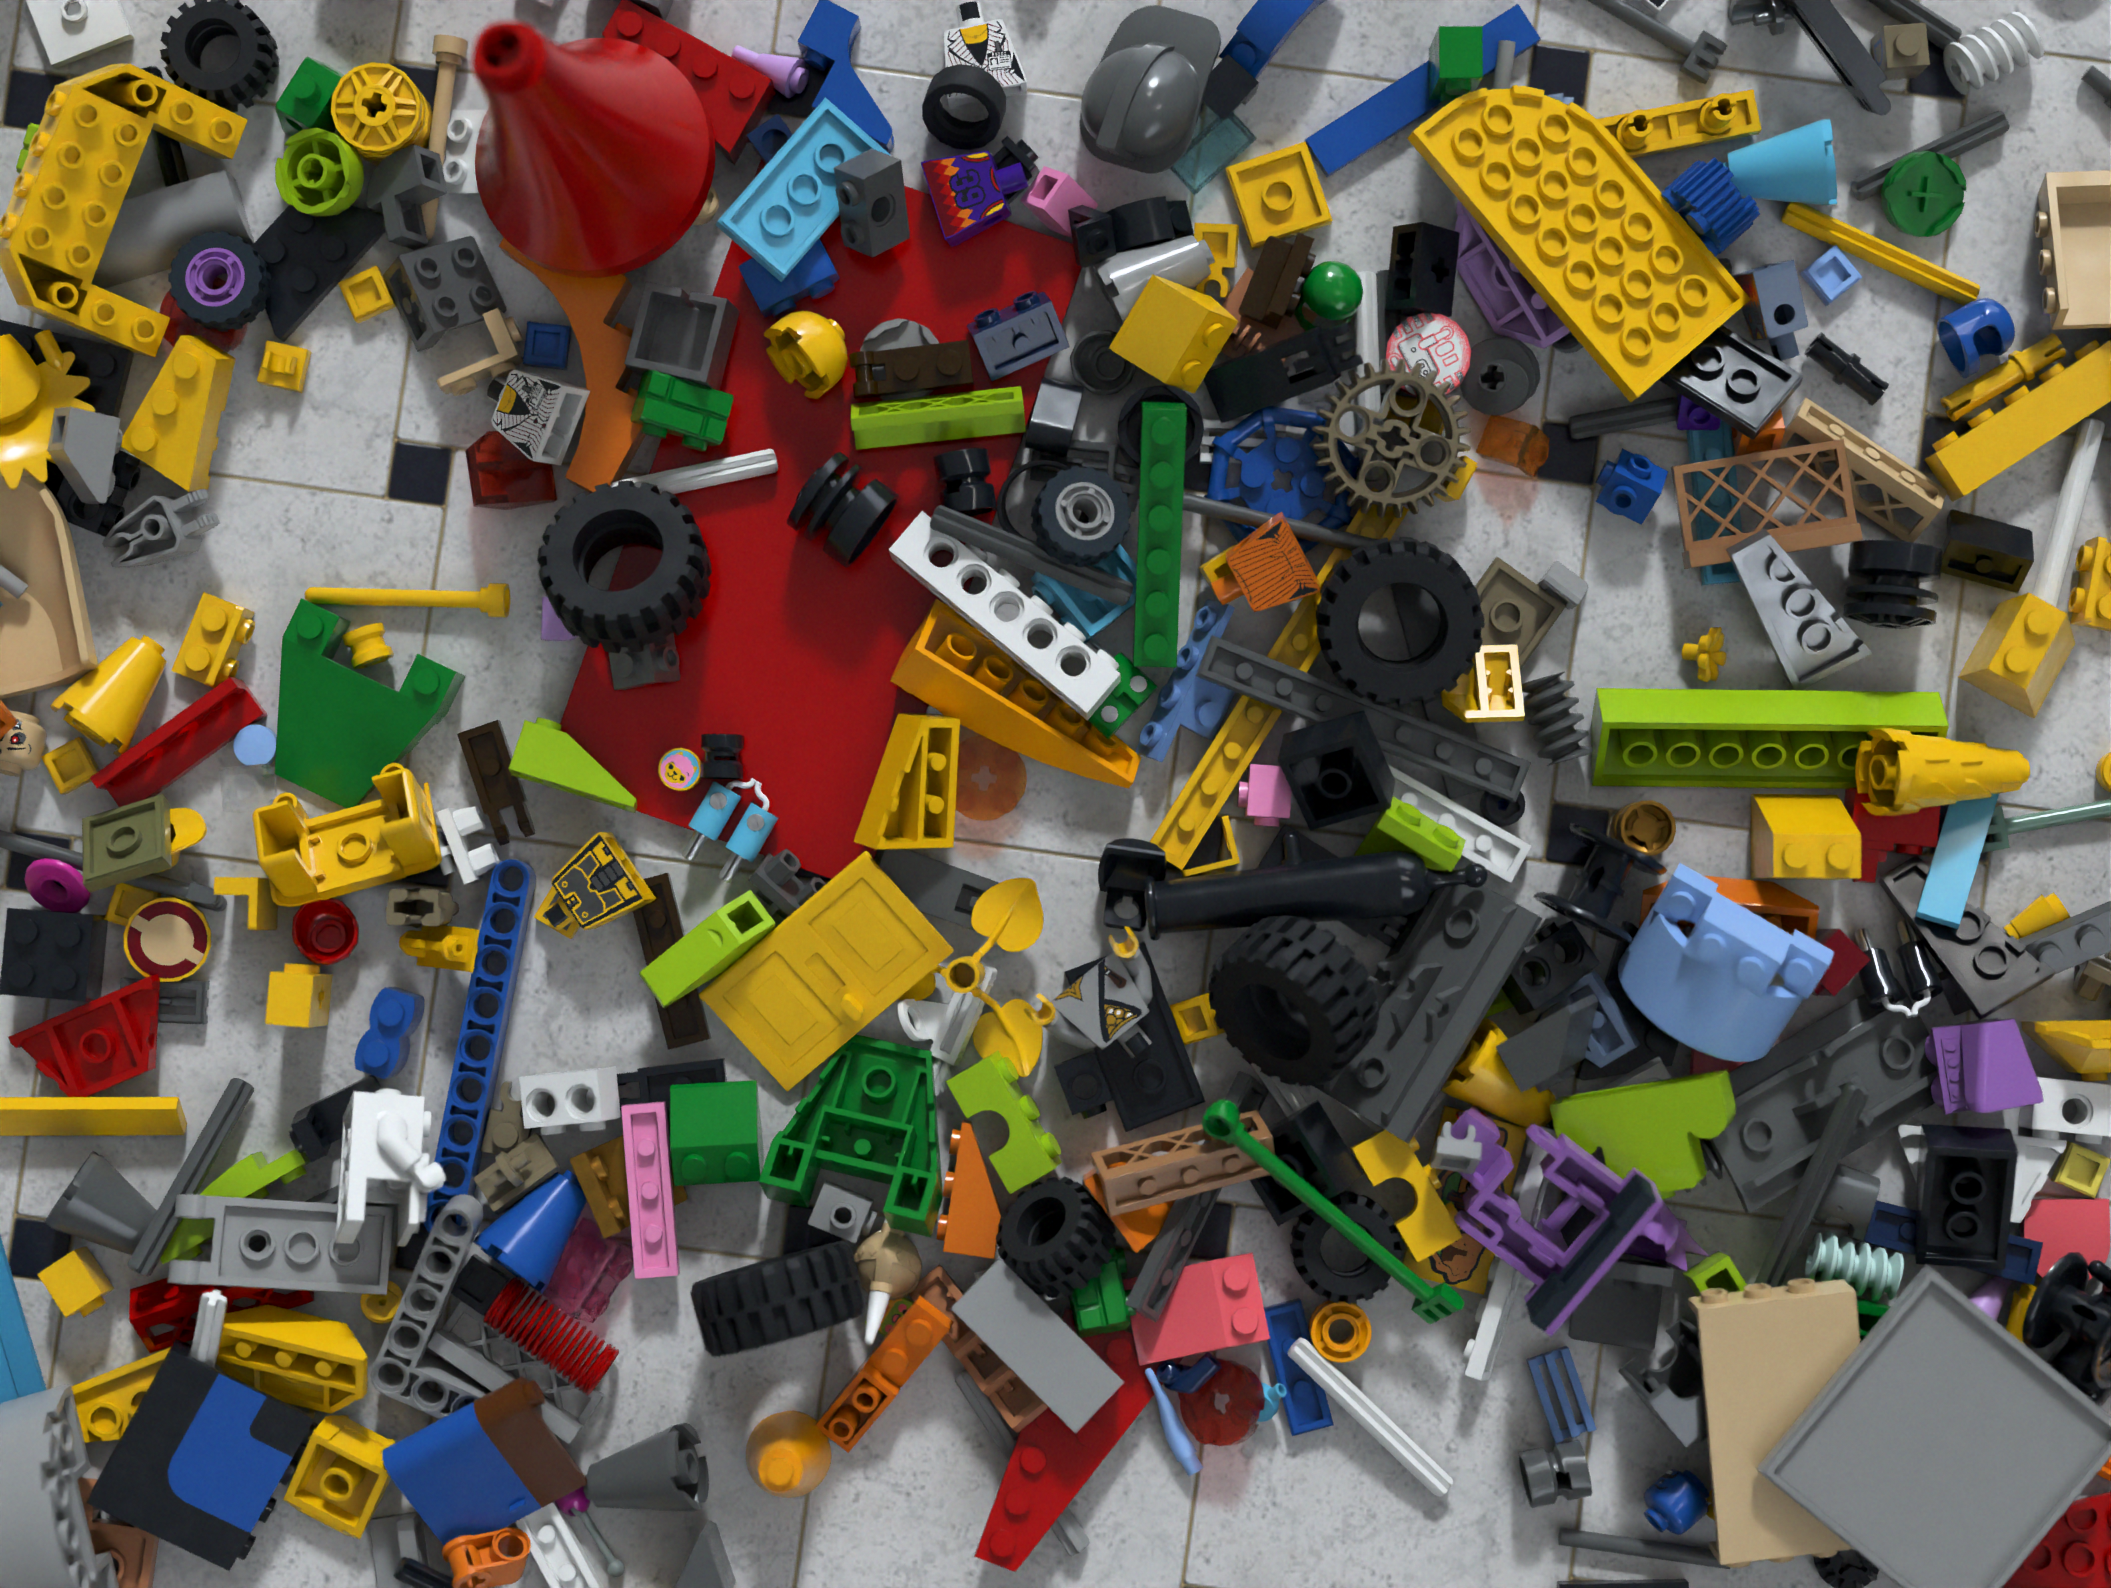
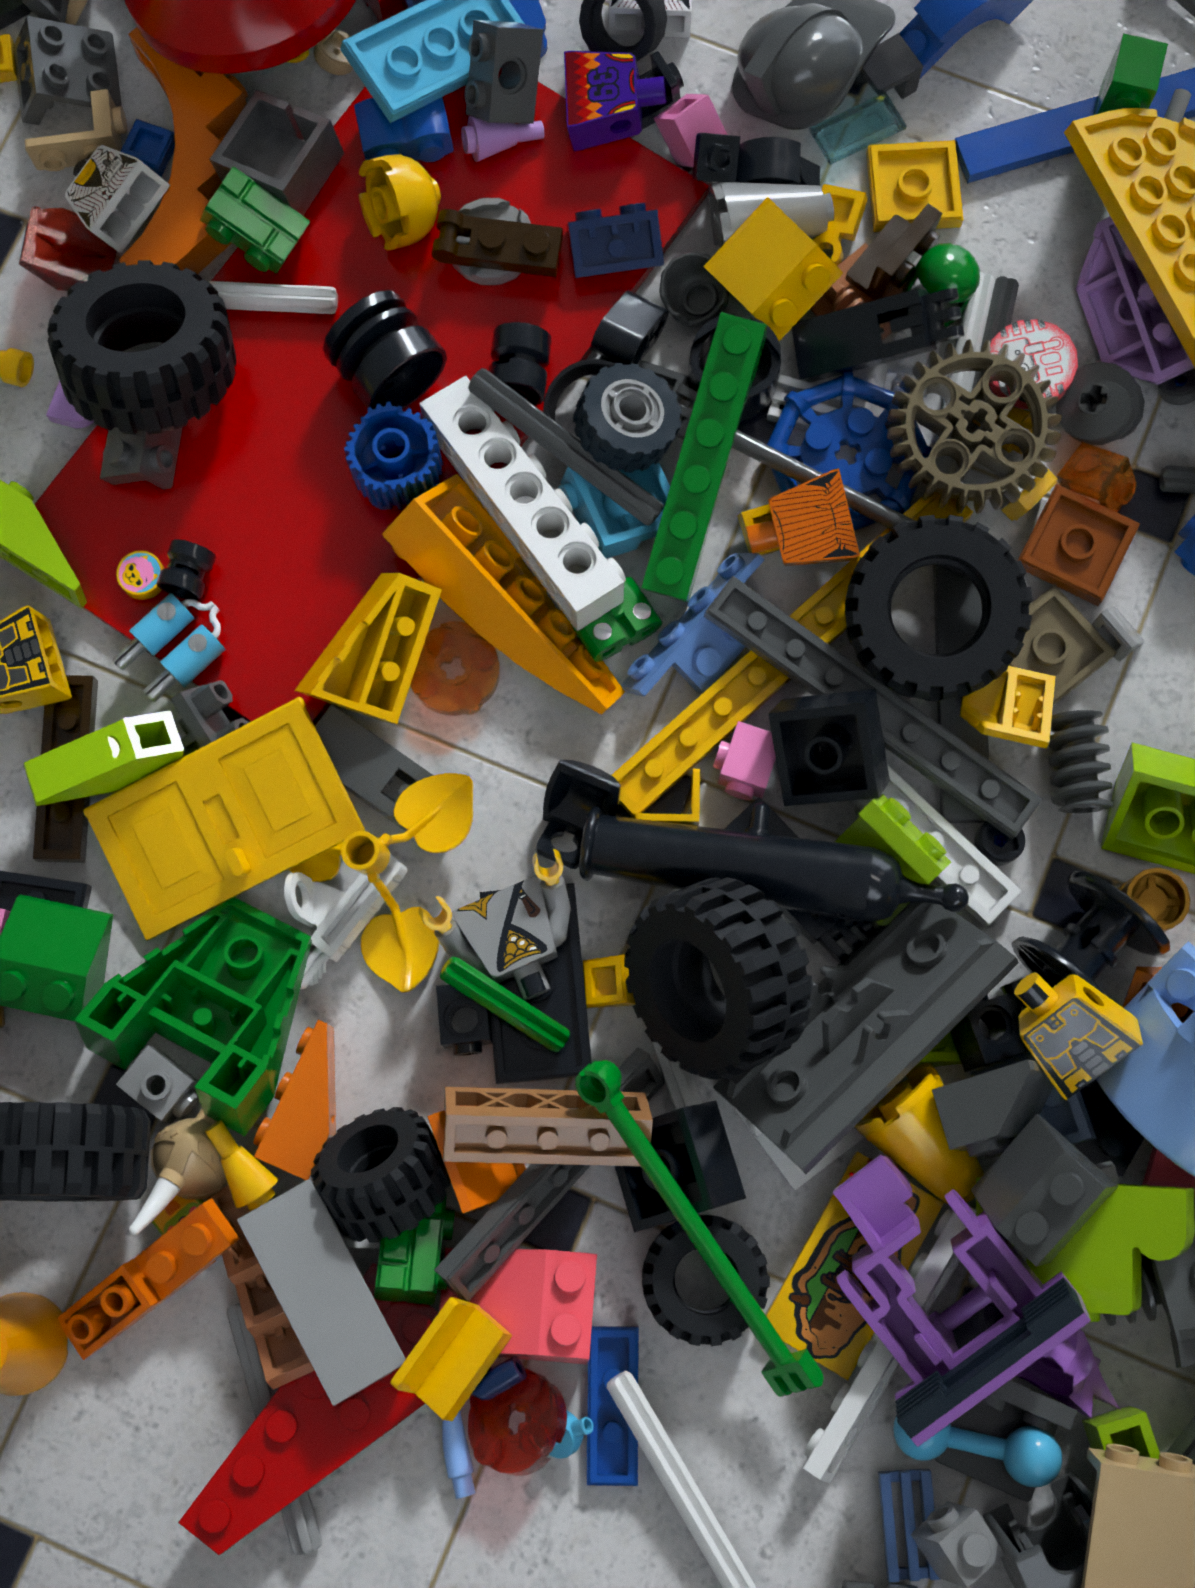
camera: 20 degrees right, 10 degrees down
(867, 268) = (488, 139): none -> lavender cone
(883, 579) = (398, 479): none -> blue brick
(938, 417) = (510, 298): lime fence -> none
(942, 1270) = (246, 1177): none -> yellow cone
(993, 1087) = (383, 1069): lime arch -> none
(1117, 1067) = (504, 1004): none -> green axle
(1158, 1367) = (452, 1357): none -> yellow panel
(1346, 1349) = (682, 1398): light orange wheel -> none
(1422, 270) = (1045, 278): black brick -> none
(1430, 1222) = (808, 1276): yellow arch -> none
(1455, 1153) = (857, 1198): light grey tile -> none
(1509, 513) = (1077, 545): none -> dark orange plate
(1600, 967) = (1074, 1030): none -> torso
(1602, 1399) = (957, 1544): none -> light grey brick
(1603, 1106) = (1041, 1191): none -> dark grey slope
(1643, 1314) = (1028, 1452): none -> medium azure piece

